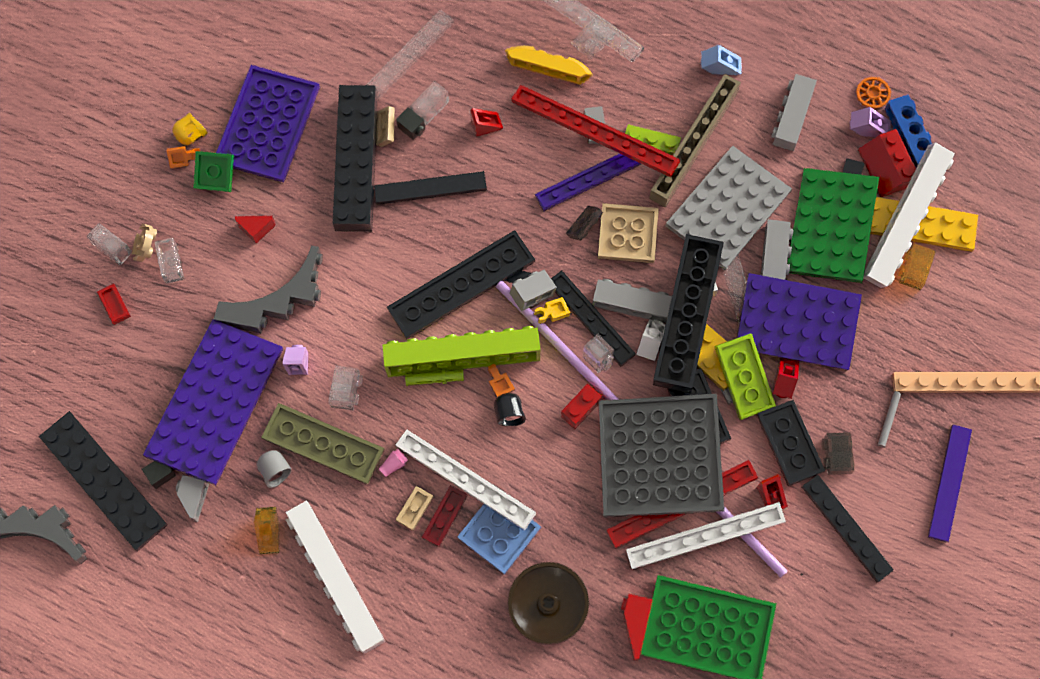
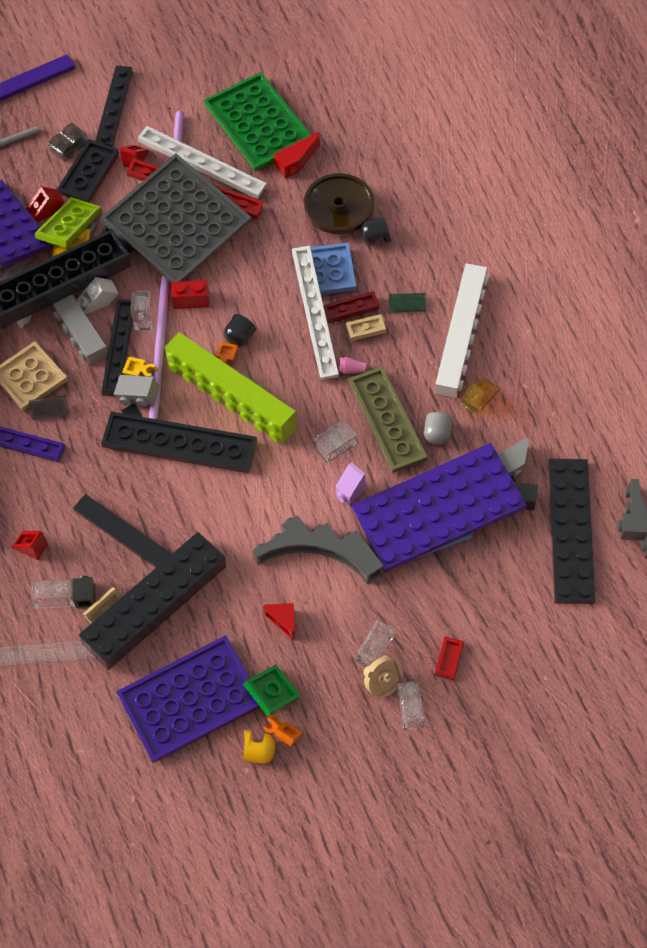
camera: 135 degrees left, 10 degrees down
(404, 565) = (407, 302): none -> clear green tile
(491, 605) = (375, 229): none -> black helmet

